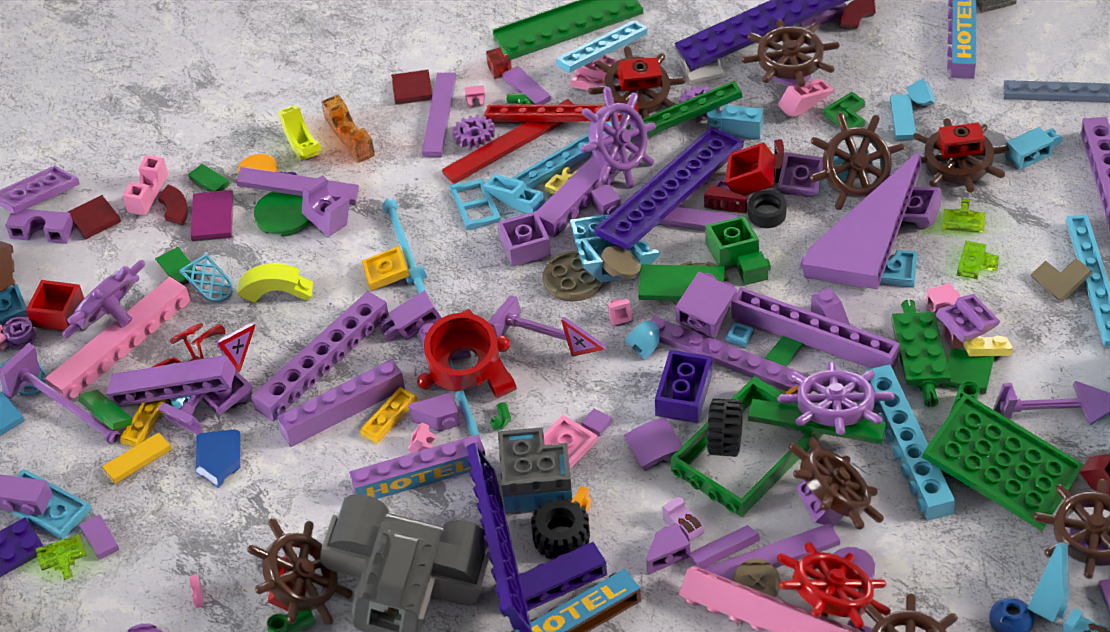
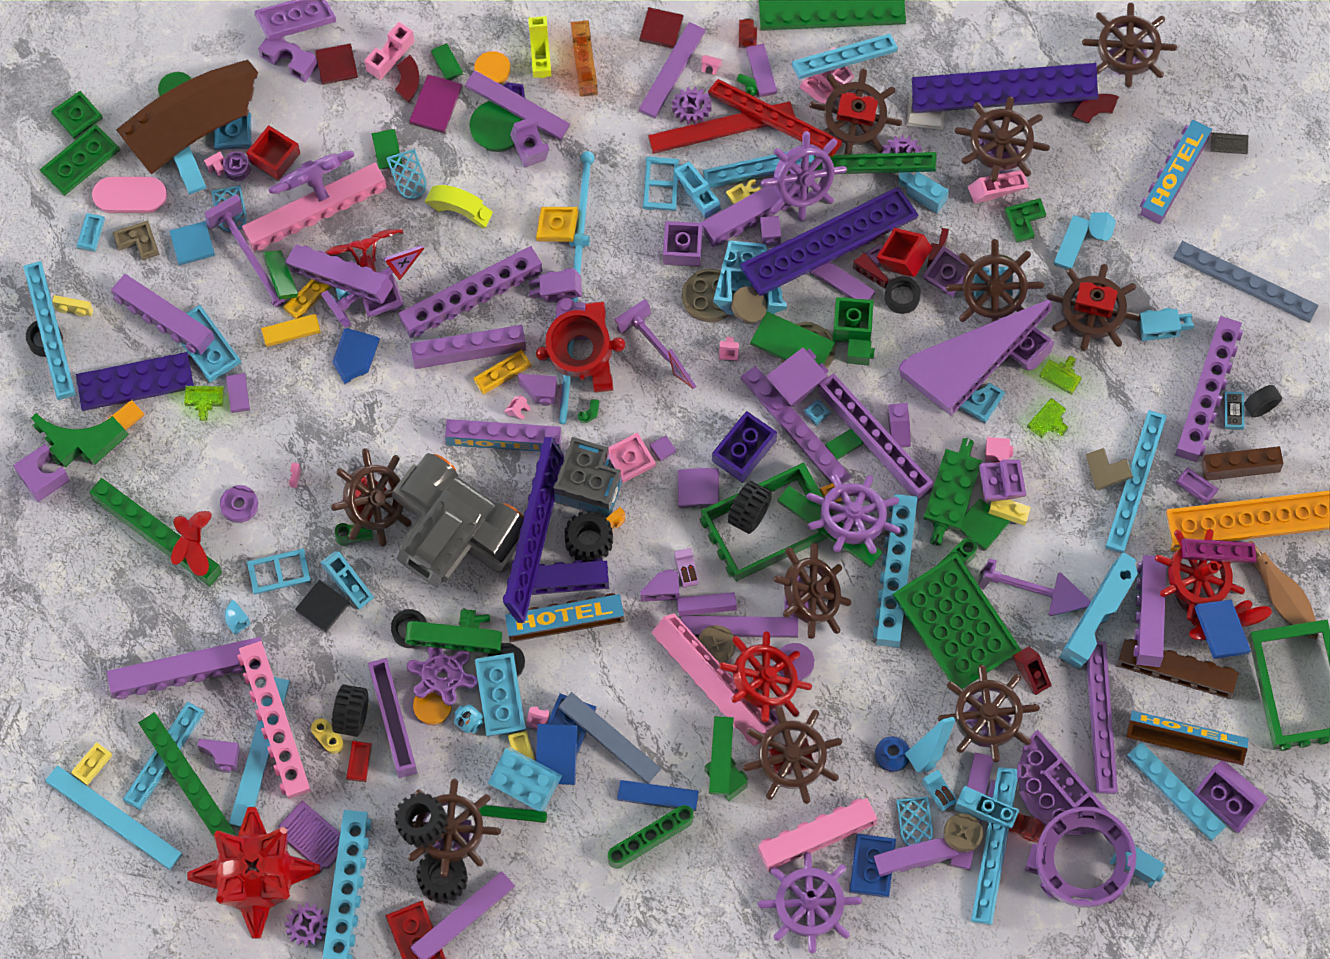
camera: 20 degrees right, 20 degrees up
(644, 338) = (736, 386): medium azure brick -> none

